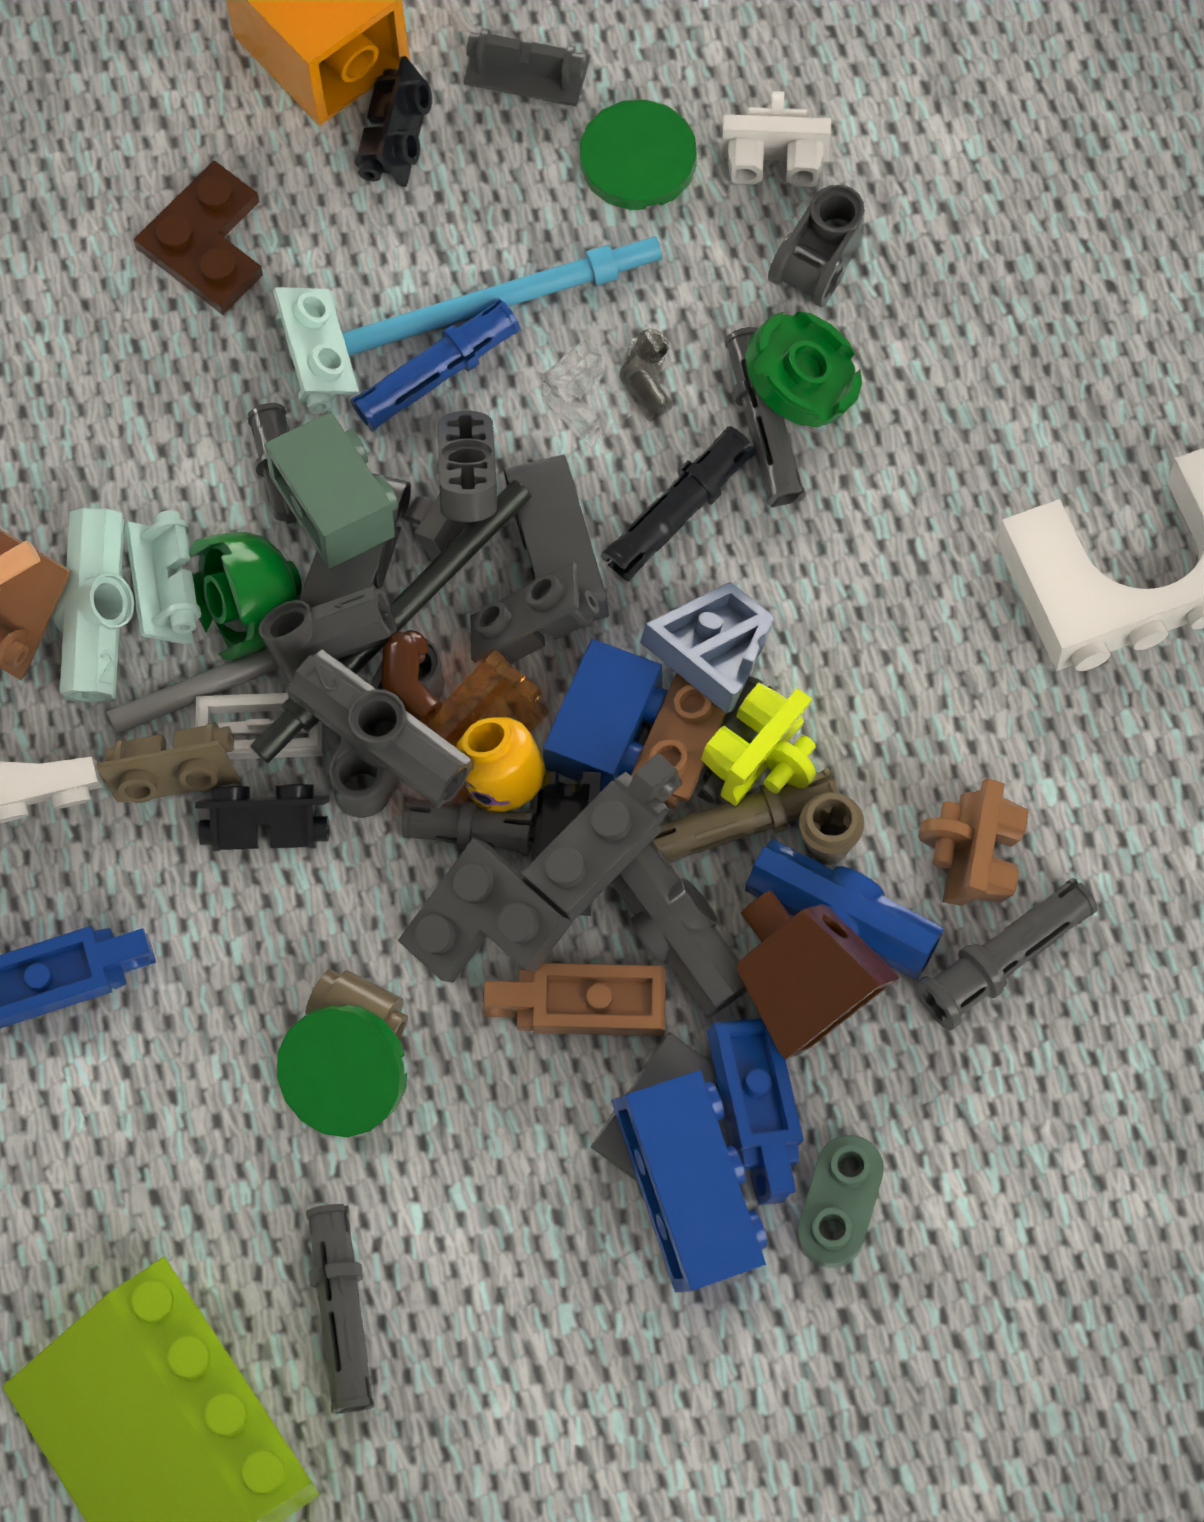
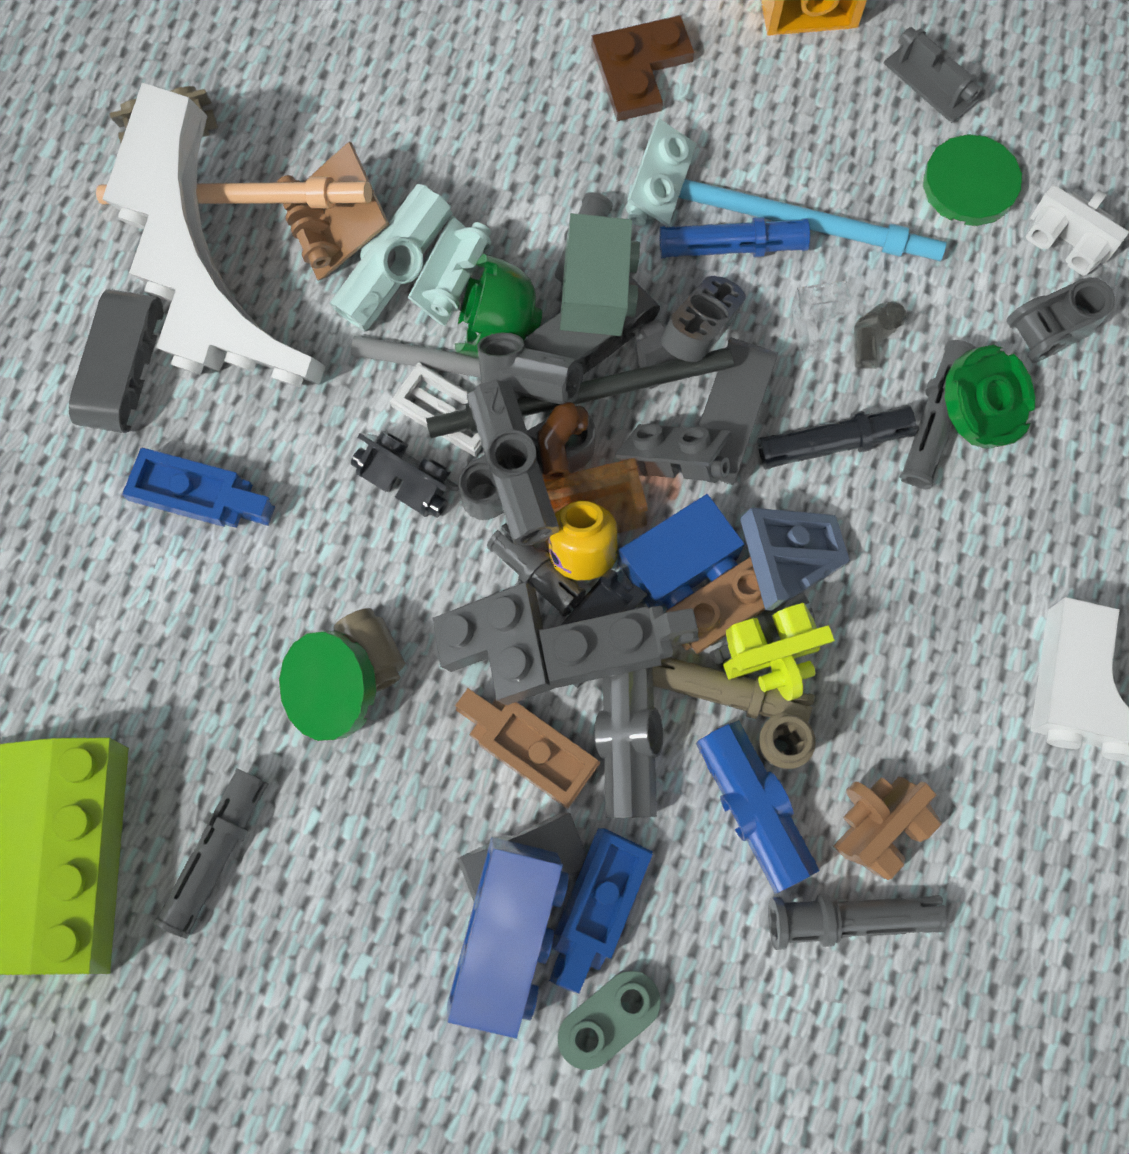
camera: 30 degrees right, 5 degrees up
(145, 770) = (348, 390): dark tan hinge -> none
(400, 103) = (824, 58): black hinge -> none
(807, 972) = (696, 840): reddish brown torso -> none

